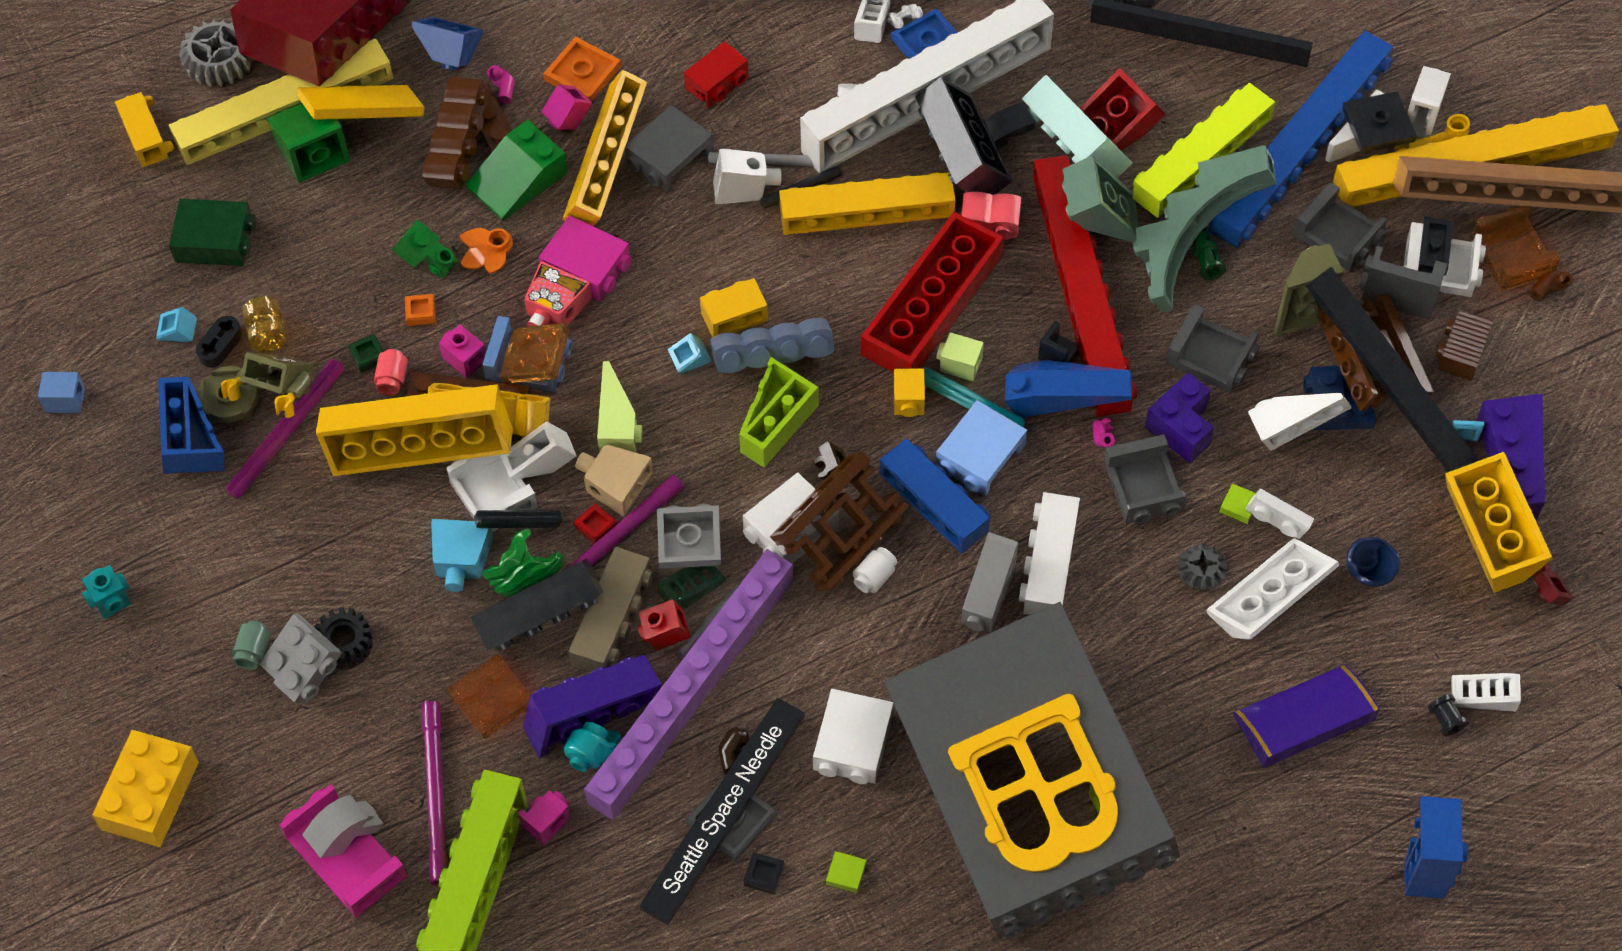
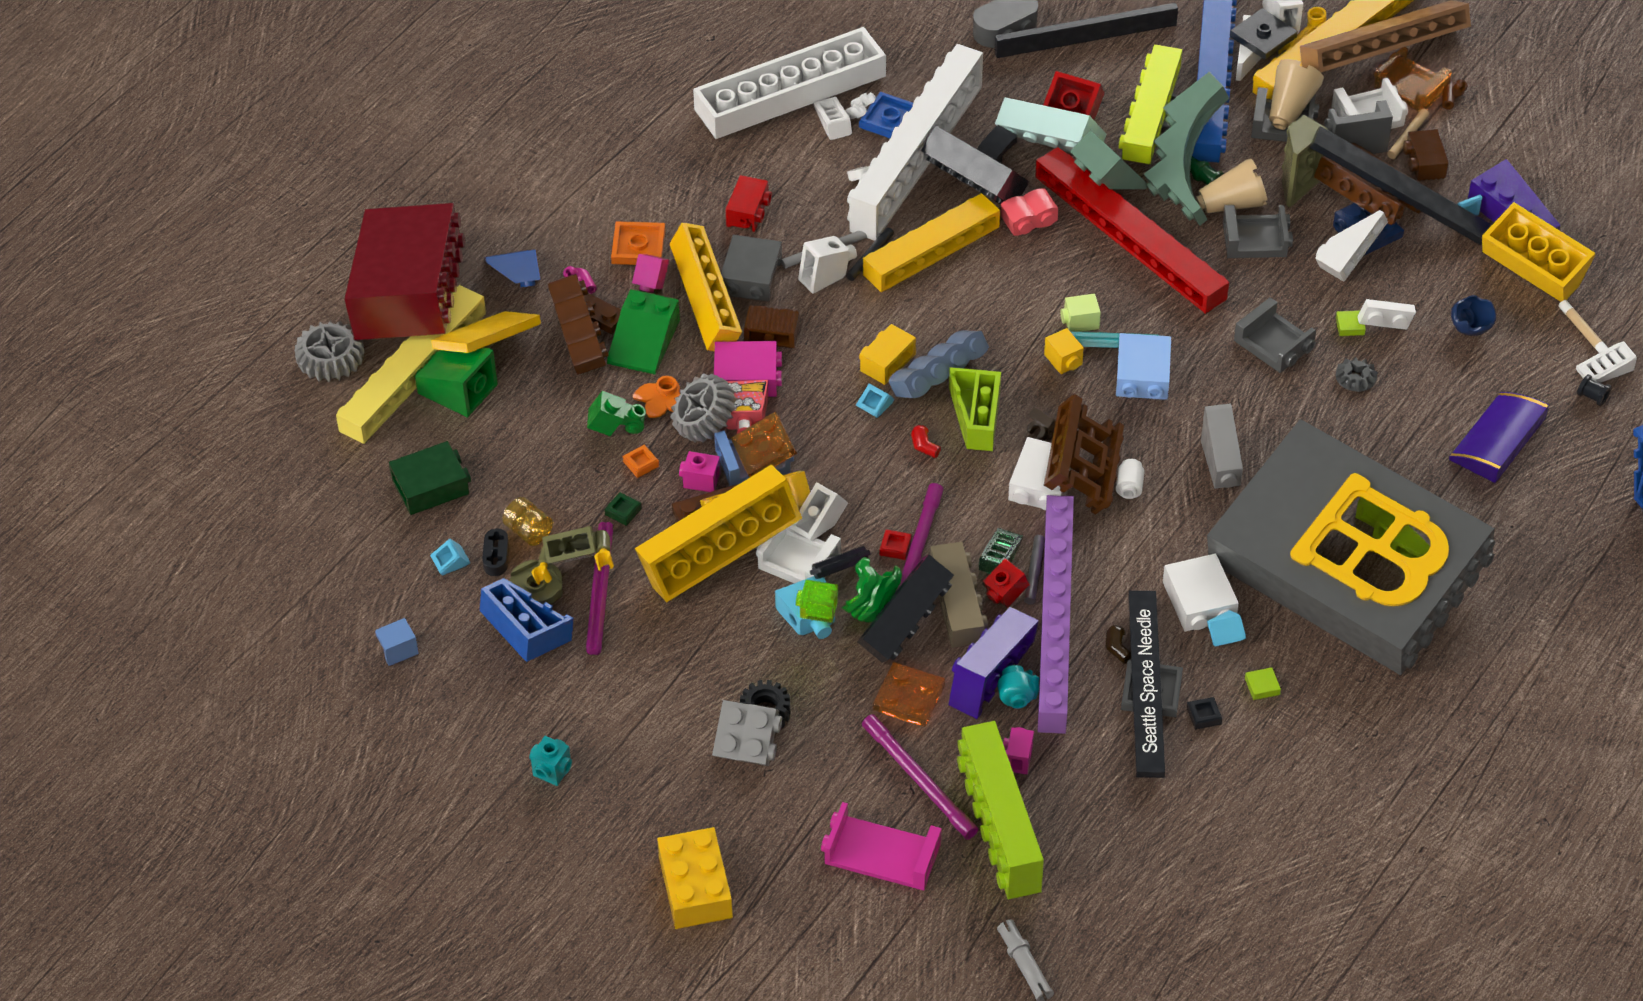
camera: 30 degrees left, 10 degrees down
(142, 129) = (310, 431): yellow brick -> none
(251, 645) = (697, 744): sand green brick -> none
(339, 824) = (871, 827): light grey brick -> none
(390, 372) = (655, 511): coral brick -> none
(456, 553) = (818, 601): none -> clear neon green brick
(506, 283) = (703, 407): none -> light grey gear
(615, 476) = (887, 504): tan torso -> none
(616, 415) = (855, 462): yellowish green slope -> none
(643, 223) = (772, 325): none -> reddish brown brick
(689, 536) = (977, 516): light grey plate -> none
(699, 423) = (921, 441): none -> red arm
(848, 791) = (1226, 628): none -> medium azure slope
(932, 295) = (1031, 280): red brick -> none
(935, 495) = (1136, 411): blue brick -> none
(1051, 552) = (1251, 415): white brick -> none
(1056, 347) = (1146, 281): black panel -> none
(1063, 386) = (1170, 300): blue wedge -> none
(1102, 433) = (1222, 321): dark pink arm -> none
(1179, 418) = (1268, 282): dark purple brick -> none
(1219, 290) = (1236, 187): none -> tan cone
(1271, 589) = (1416, 366): white slope -> none
(1356, 207) = (1292, 91): none -> tan cone
(1435, 243) = (1360, 95): black plate -> none
(1470, 307) = (1413, 126): none -> tan bar
(1494, 632) = (1582, 326): none -> tan bar
(1551, 586) = (1600, 281): dark red plate -> none

